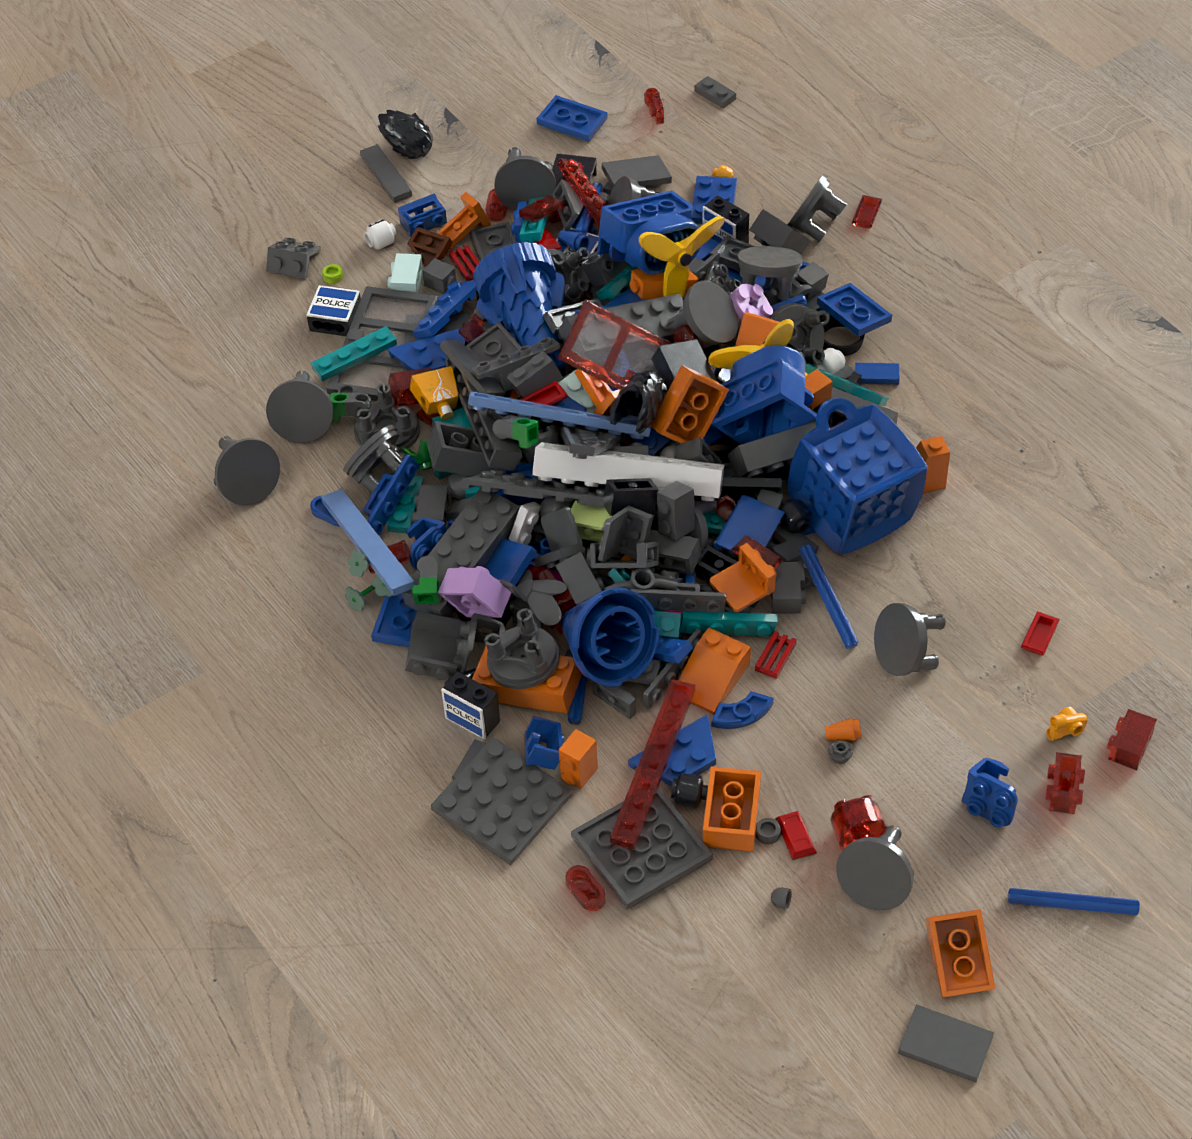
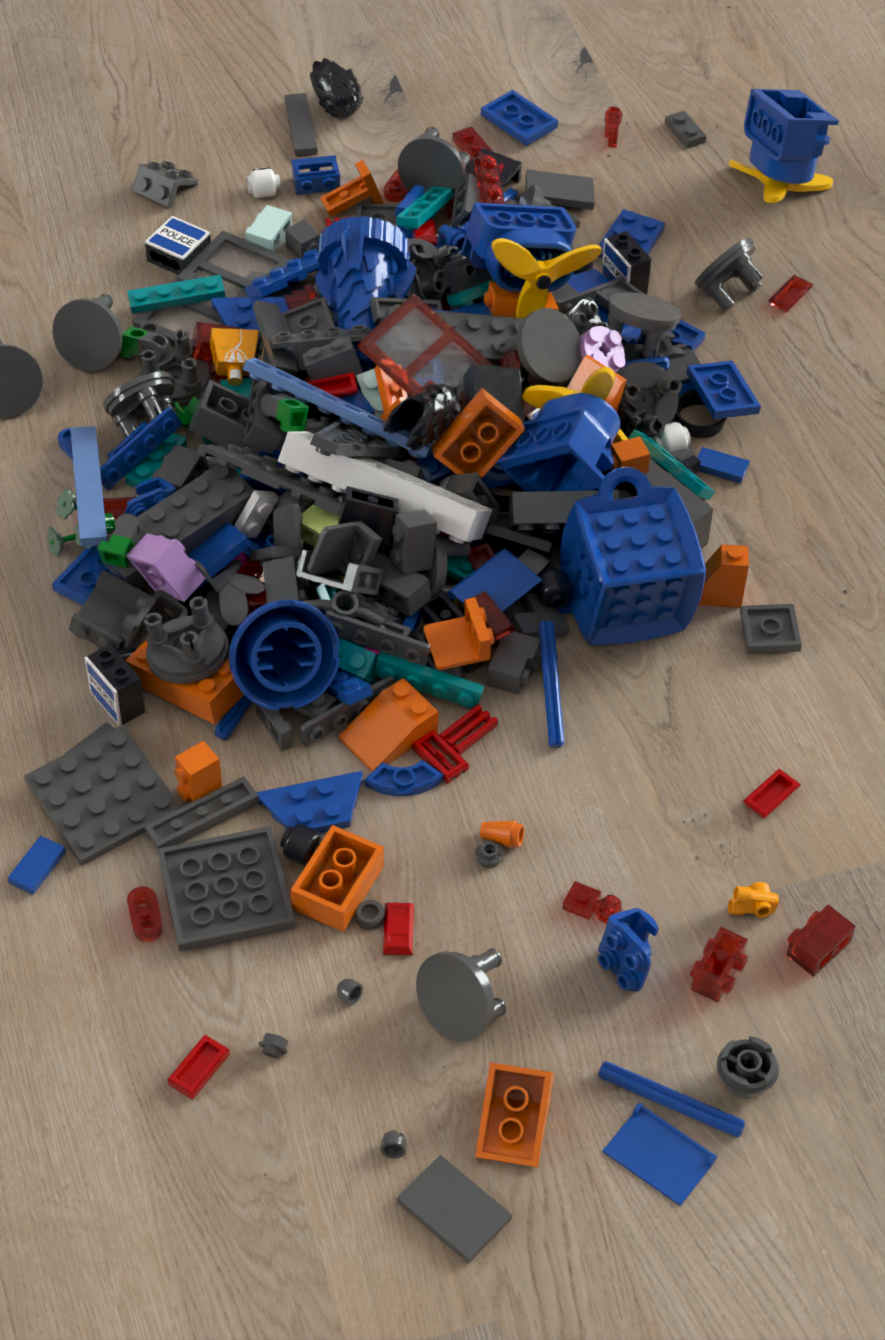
camera: 15 degrees right, 0 degrees up
(332, 273) = (197, 210): lime tile -> none
(429, 245) = (307, 206): reddish brown wing -> none
(474, 876) = (36, 865): none -> blue tile
(540, 150) = (469, 141): none -> clear red plate
(541, 208) = (433, 197): clear red plate -> none
(546, 732) = (178, 734): blue window -> none
(592, 791) = (202, 813): none -> dark grey plate
(652, 764) = (274, 804): clear red plate -> none
(689, 998) = (198, 1067): none -> red tile
(723, 171) = (655, 212): light orange piece -> none
(742, 960) = (273, 1045): none -> dark grey plate
(760, 685) = (428, 753): none -> red tile
(774, 232) = (678, 289): dark grey brick -> none
(813, 82) = (786, 142): none -> blue brick
(815, 277) = (694, 345): dark grey brick -> none
(857, 820) = (466, 930): clear red brick -> none
(875, 1008) = (398, 1145): none -> dark grey hinge
(903, 639) = (607, 752): dark grey piece -> none
(933, 766) = (585, 900): none -> clear red plate
(979, 498) = (770, 628): none -> dark grey plate
(1083, 948) = (660, 1154): none -> blue piece
(1124, 857) = (747, 1067): none -> dark grey cone

